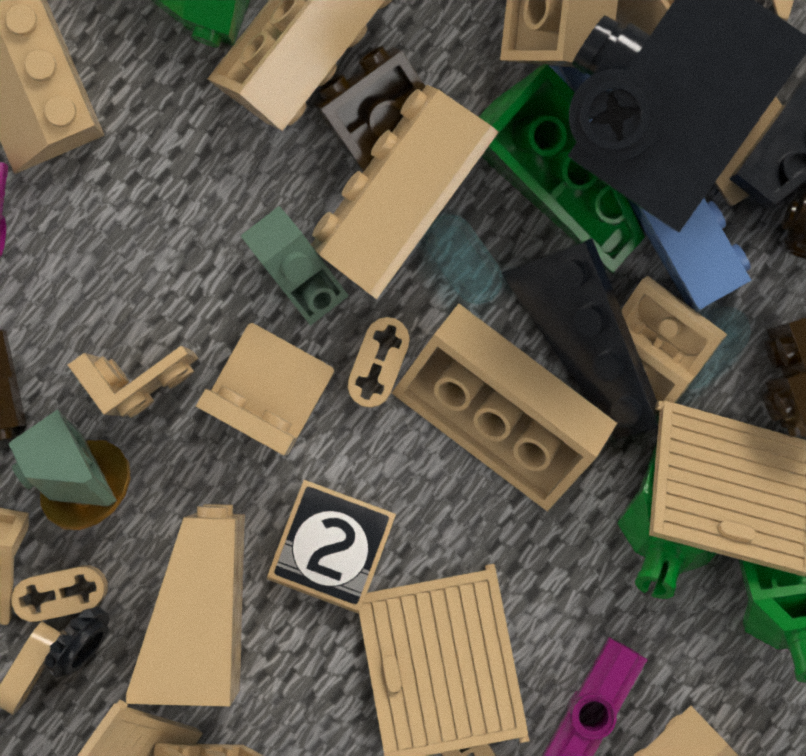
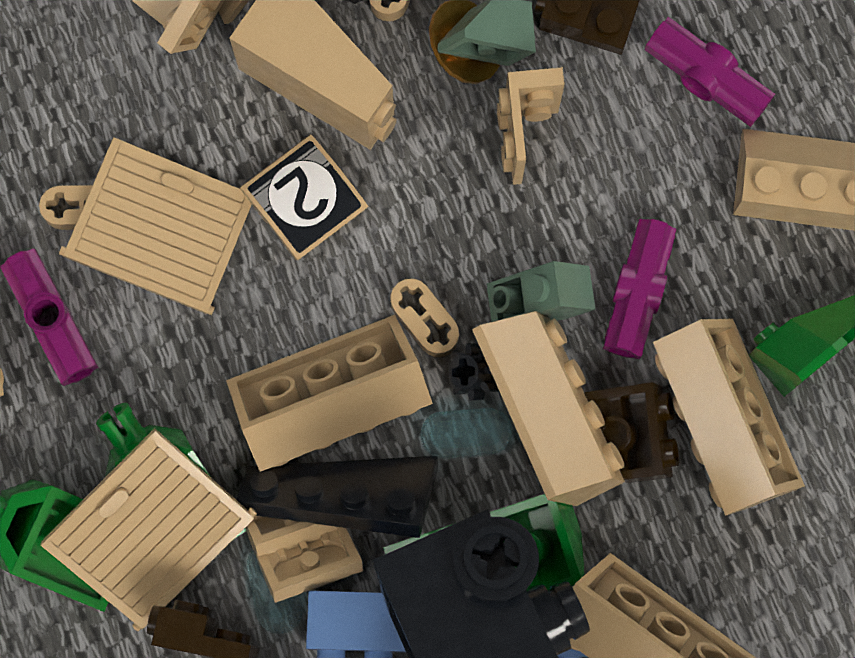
camera: 120 degrees right, 10 degrees down
(231, 178) = (639, 288): none -> magenta piece
(267, 389) = (454, 216): tan bracket -> none
(409, 286) = (462, 373): none -> black gear

